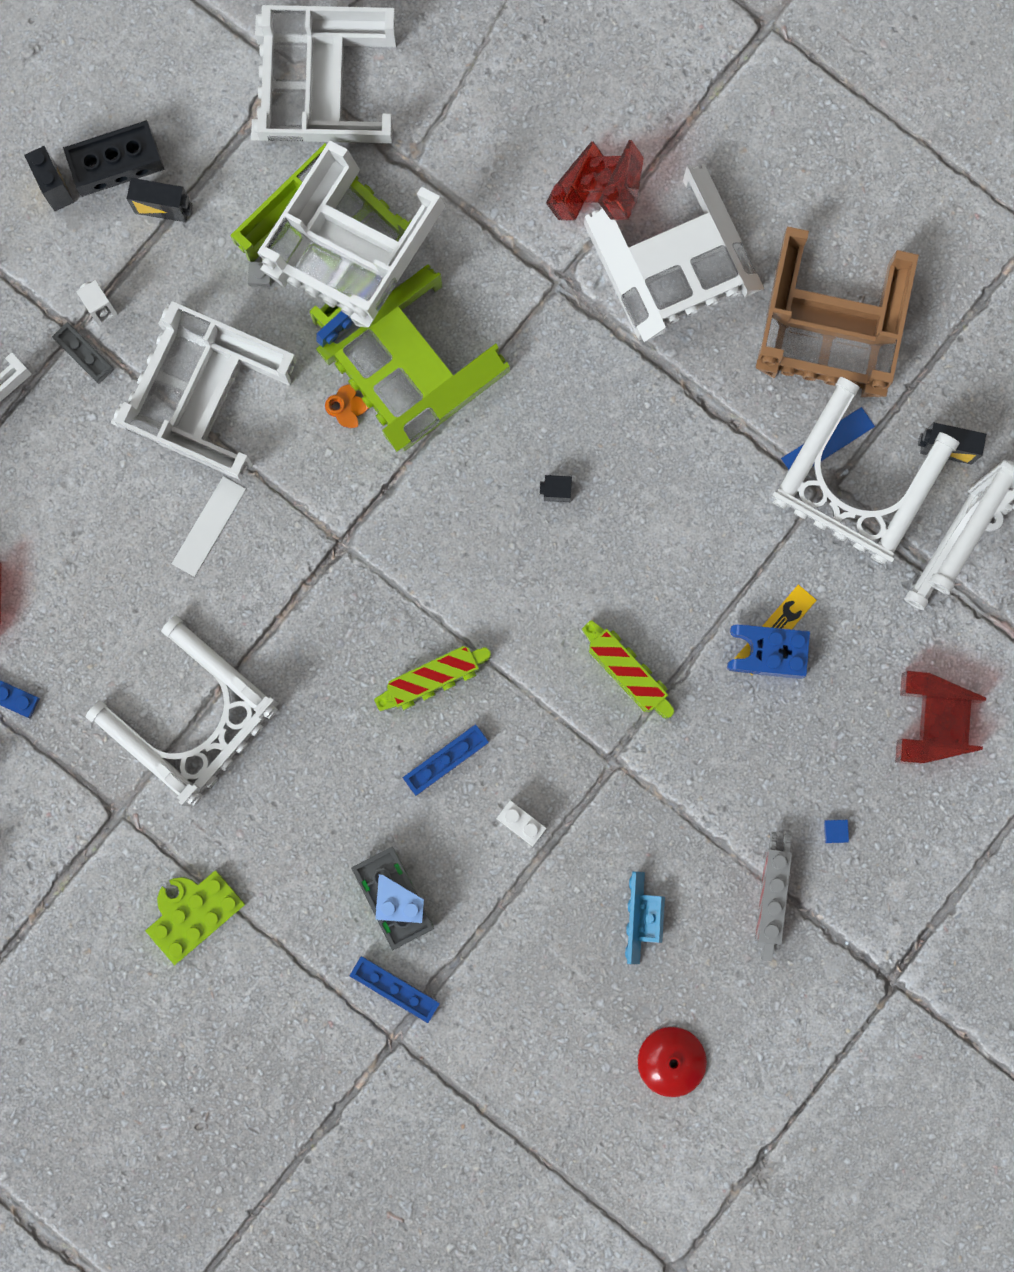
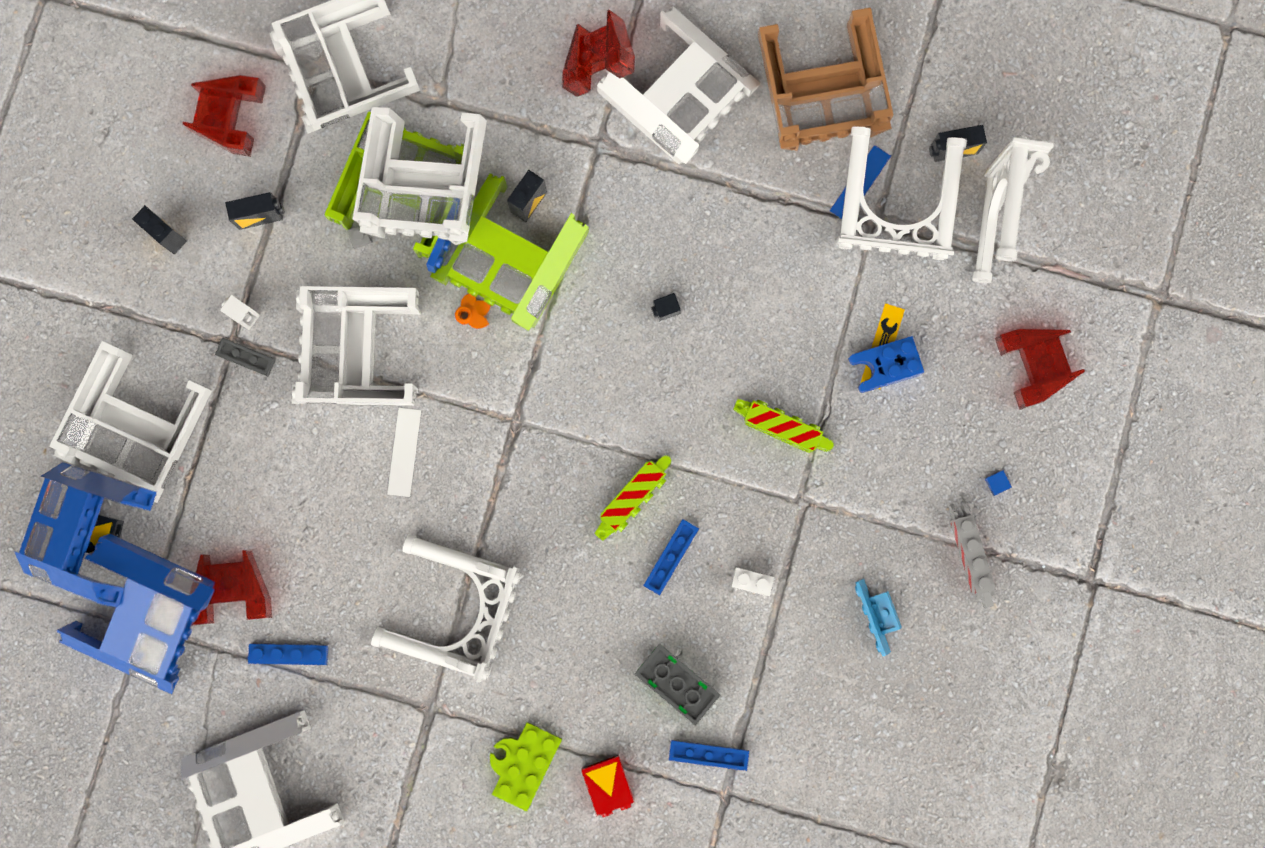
camera: 20 degrees left, 0 degrees up
(101, 151) = (194, 186): black brick -> none
(167, 76) = (219, 110): none -> clear red wedge
(272, 975) = (608, 786): none -> red brick
(397, 902) = (683, 686): light blue wing -> none
(457, 305) = (527, 195): none -> black brick
(660, 1049) = (936, 713): red dish -> none

